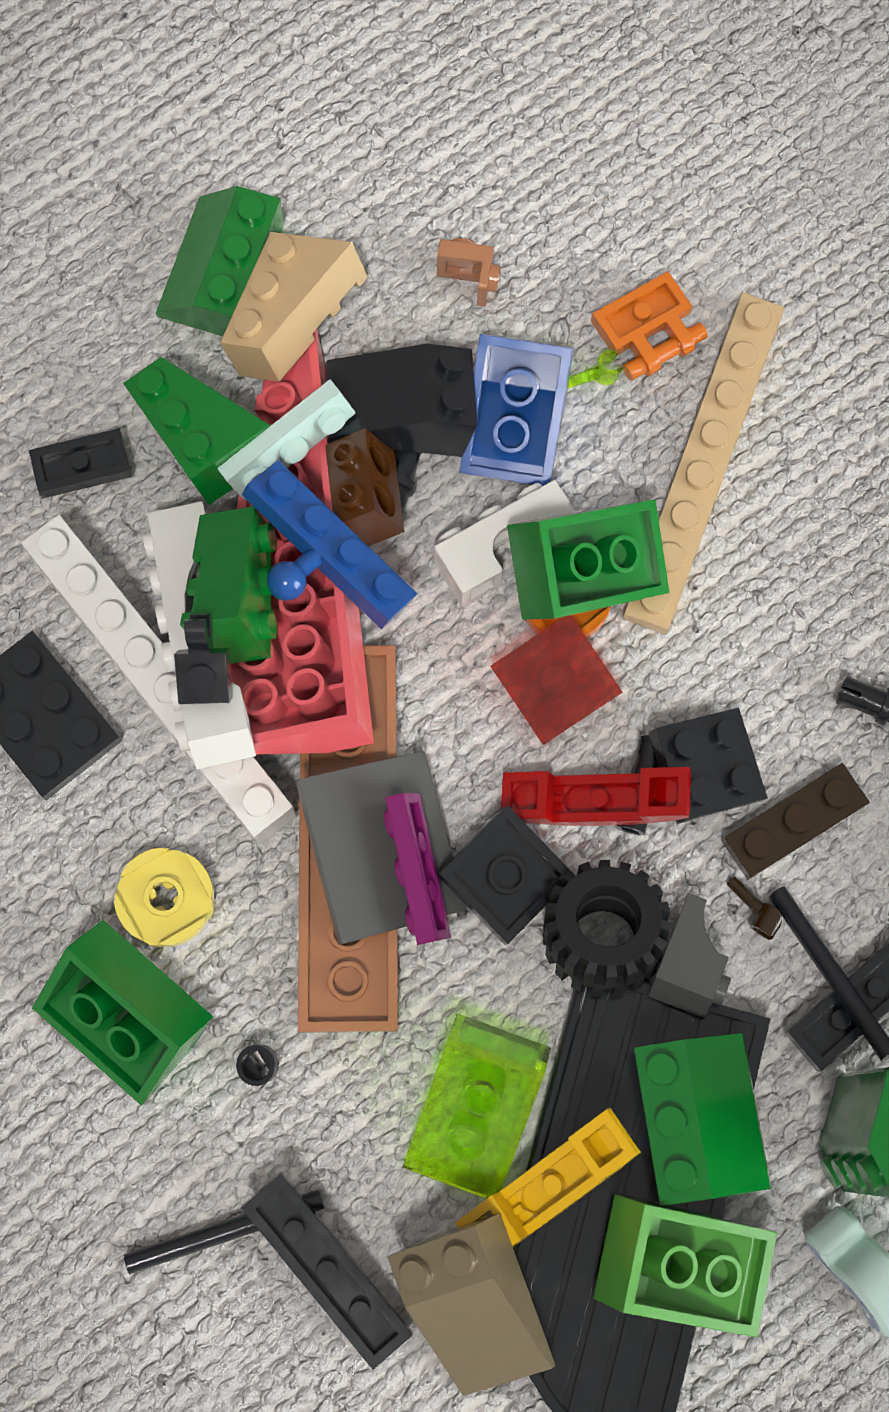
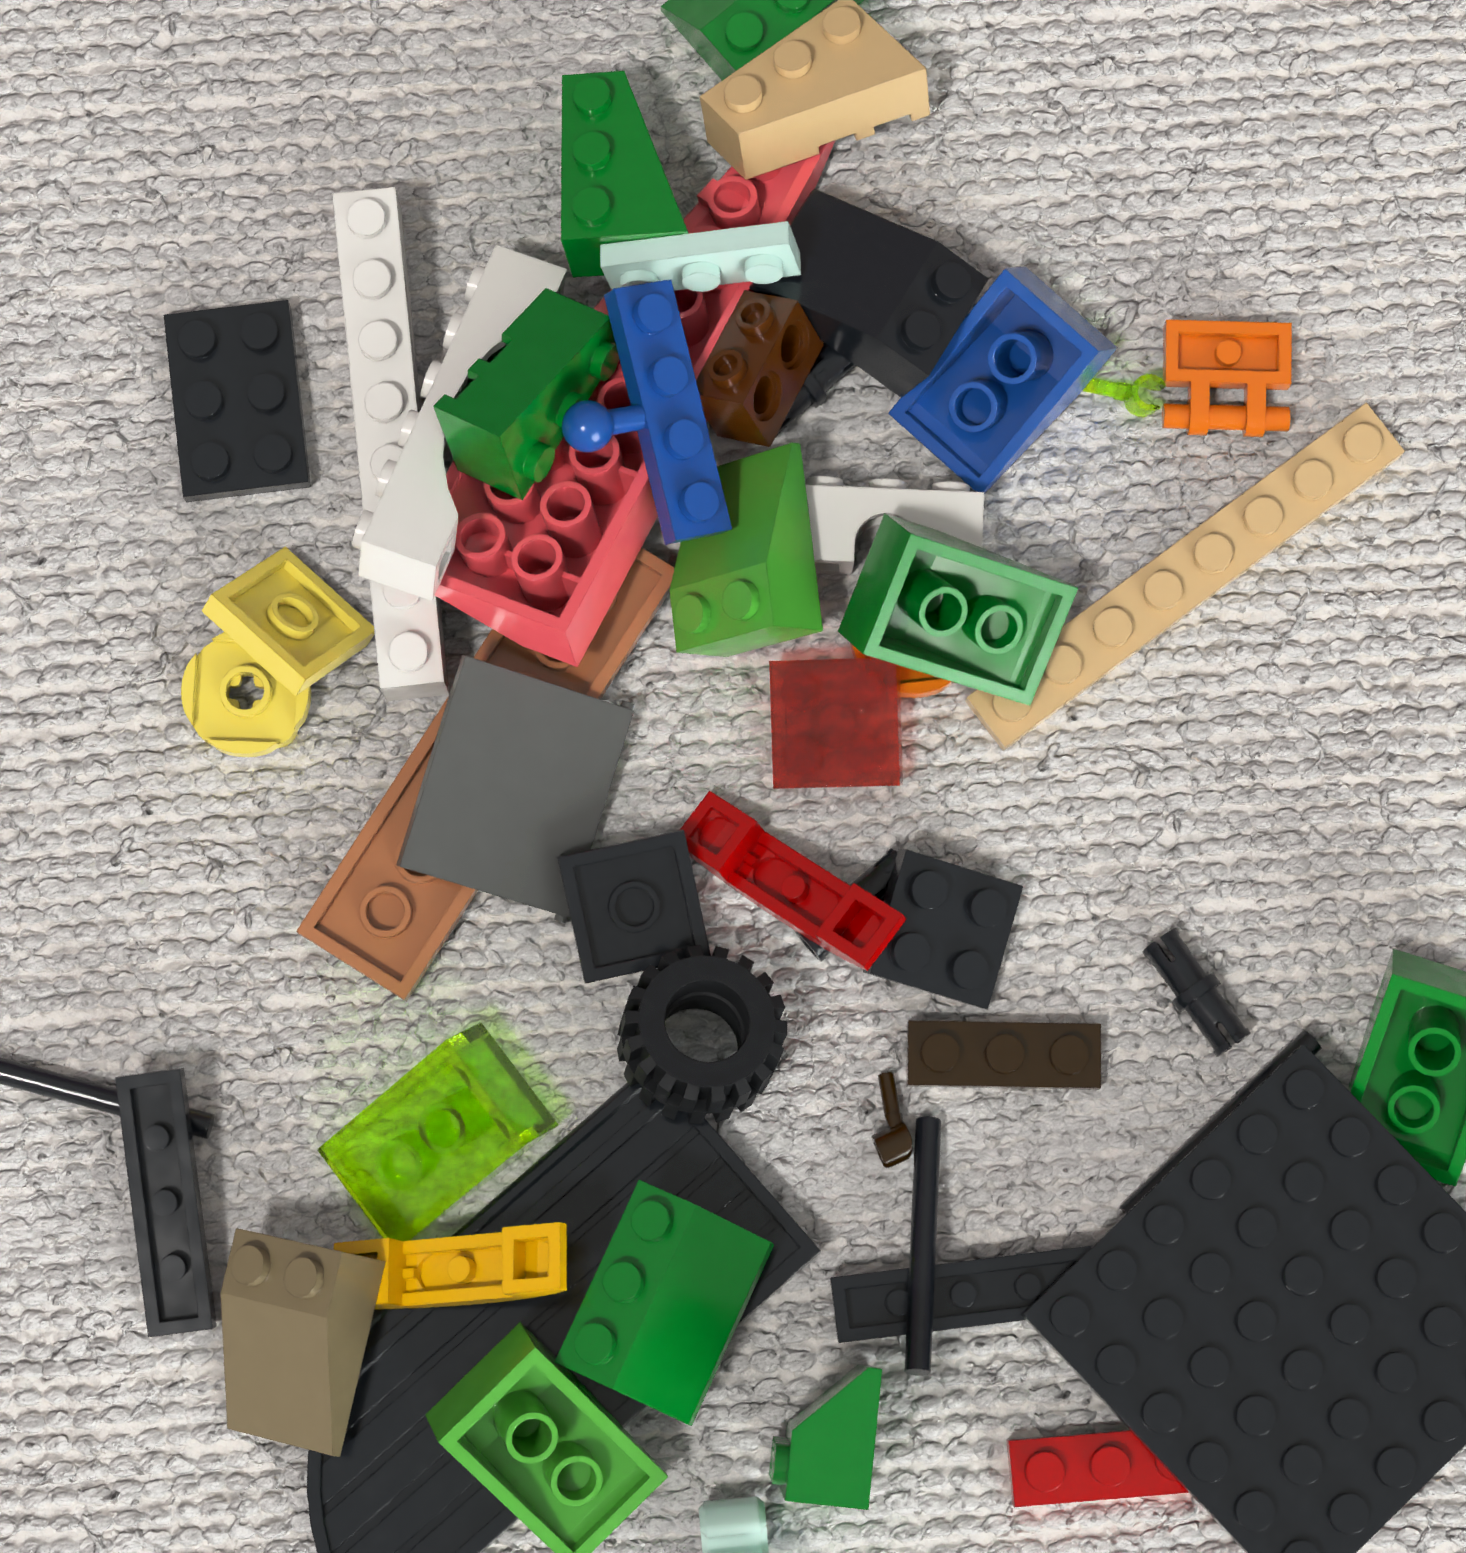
camera: 35 degrees right, 5 degrees up
(80, 463) = (461, 137): black plate -> none
(121, 1011) = (122, 787): green slope -> none
(164, 832) = (289, 620): none -> light yellow plate
(201, 670) = (424, 468): black plate -> none
(250, 1069) = (221, 939): black hinge -> none
(416, 868) = (535, 836): magenta plate -> none
(448, 620) = (759, 577): none -> bright green slope
(469, 262) = (1062, 165): nougat bracket -> none
(691, 966) = (764, 1138): dark grey arch -> none

